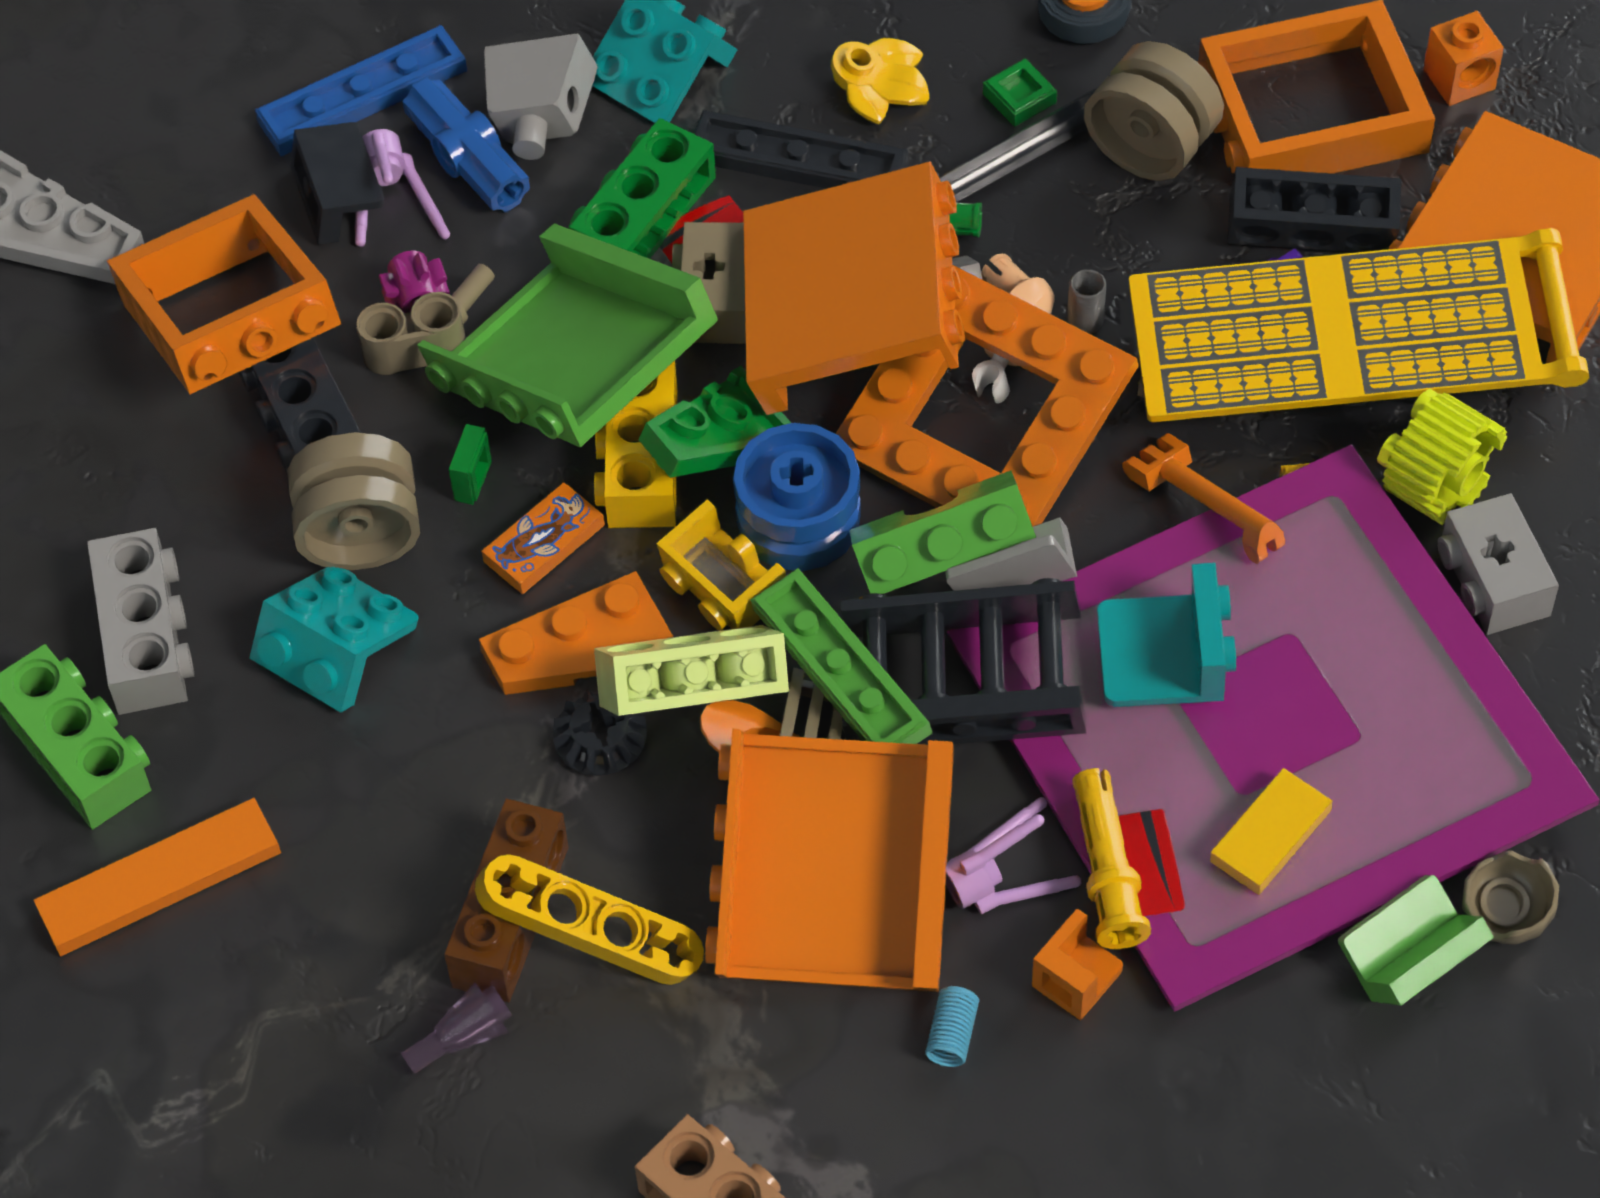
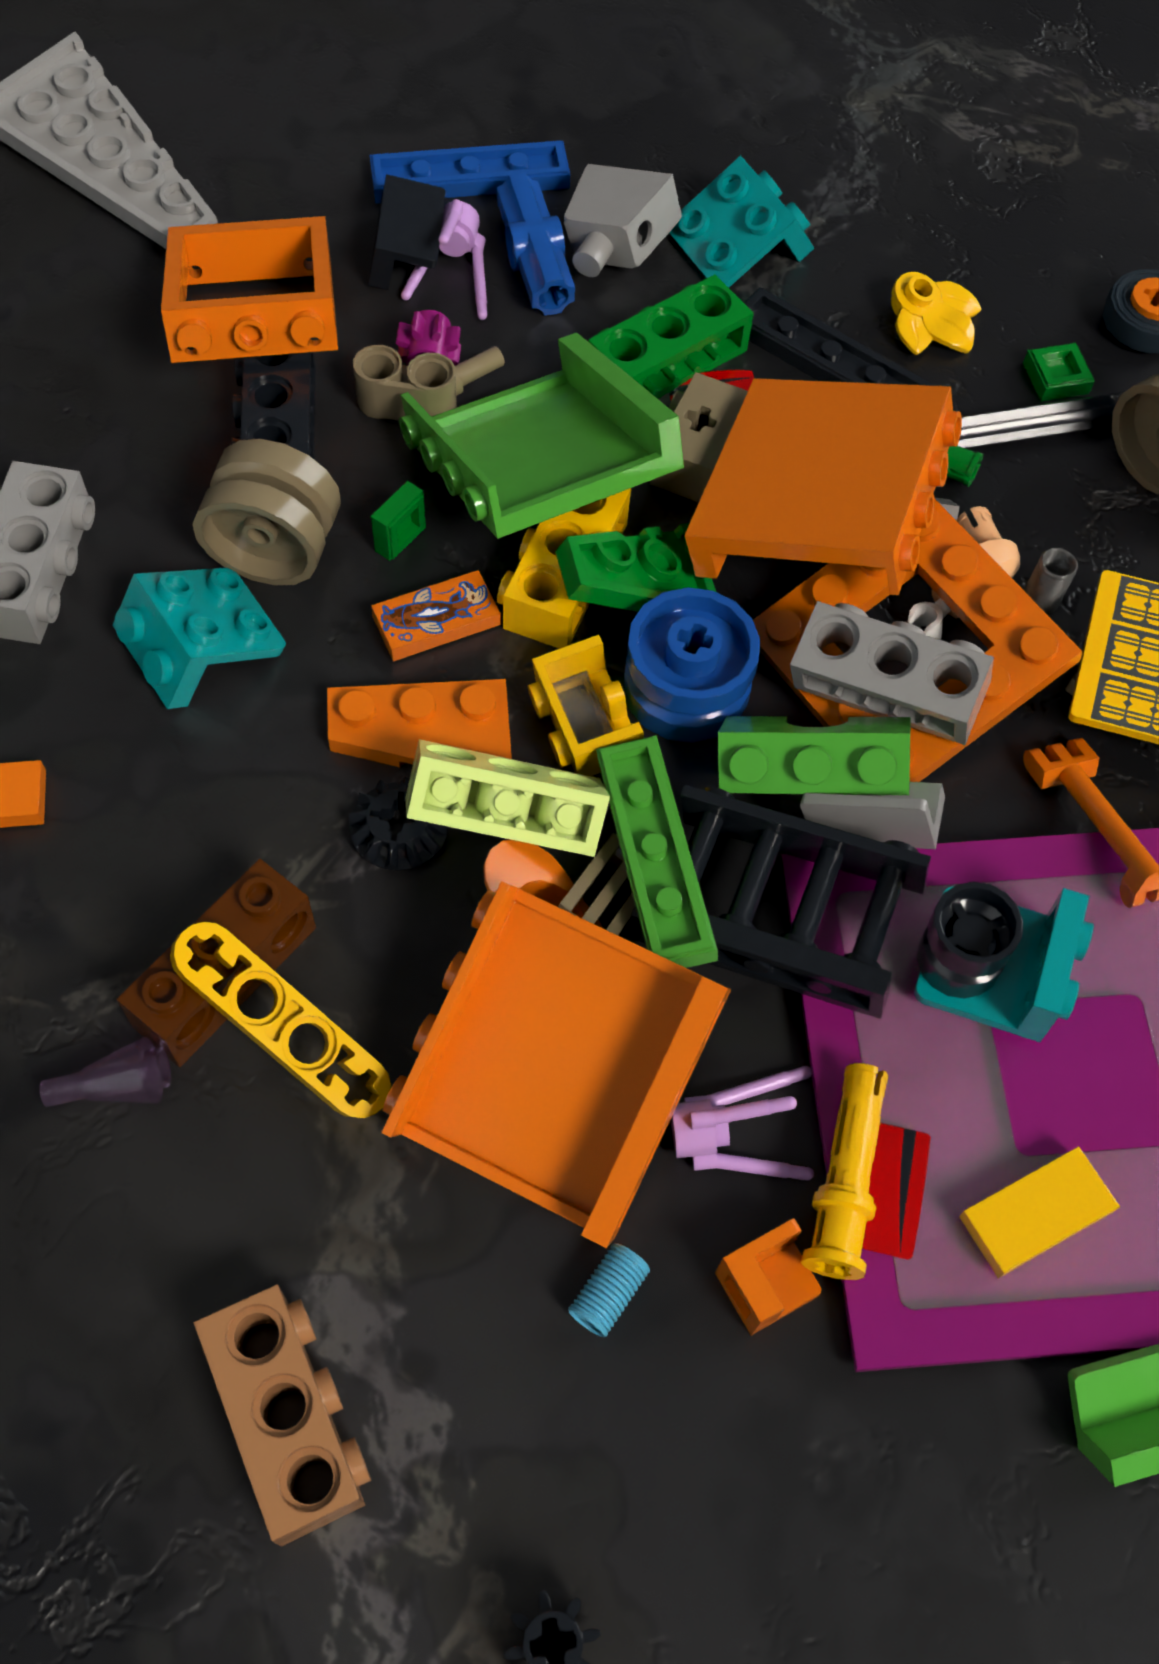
camera: 15 degrees right, 5 degrees up
(955, 458) = (858, 682): none -> light grey brick
(1131, 636) = (969, 939): none -> black wheel

